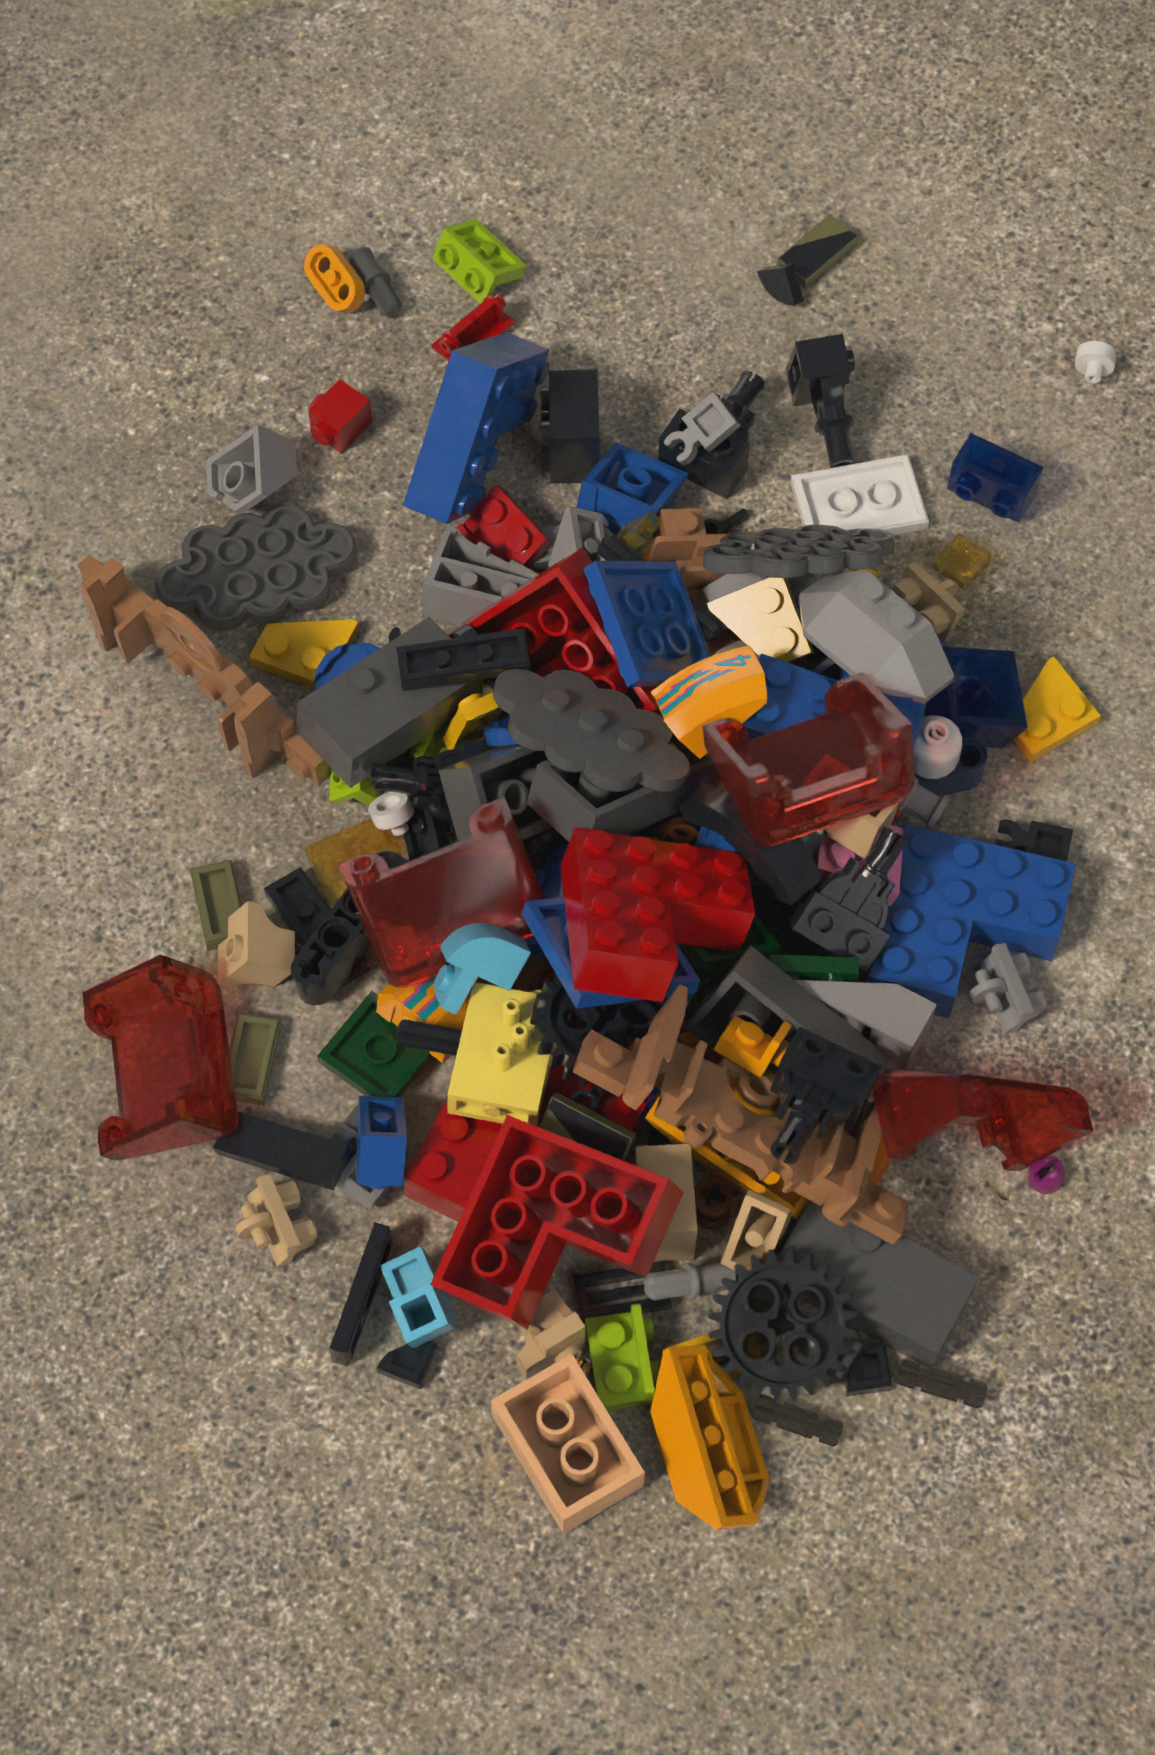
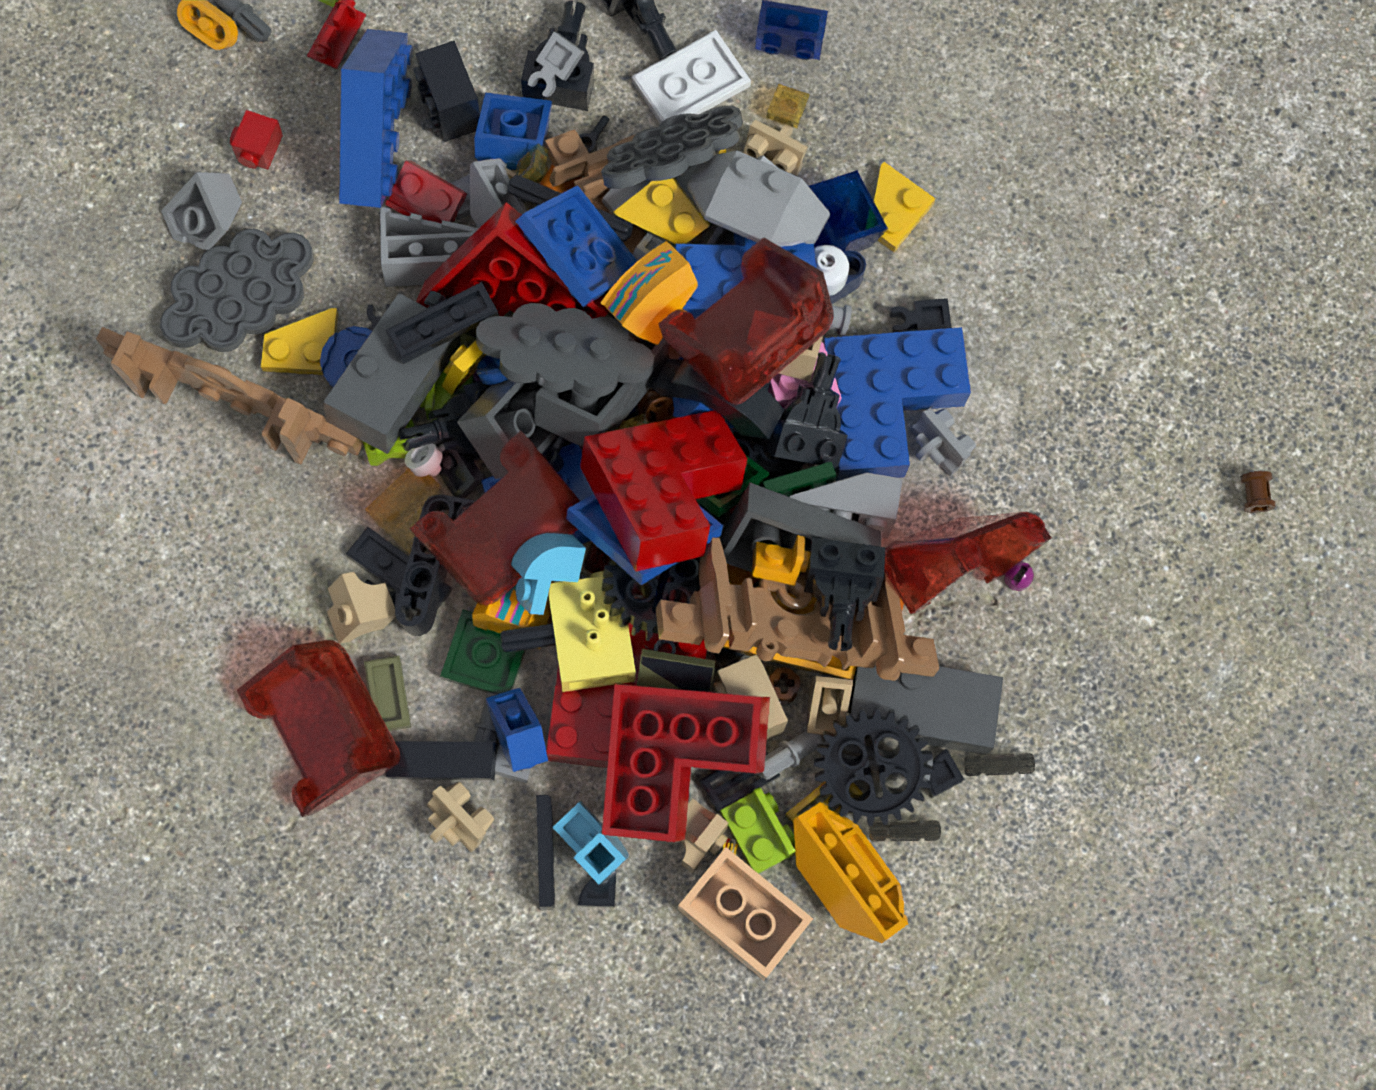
camera: 25 degrees left, 10 degrees up
(216, 899) = (311, 575): olive tile -> none

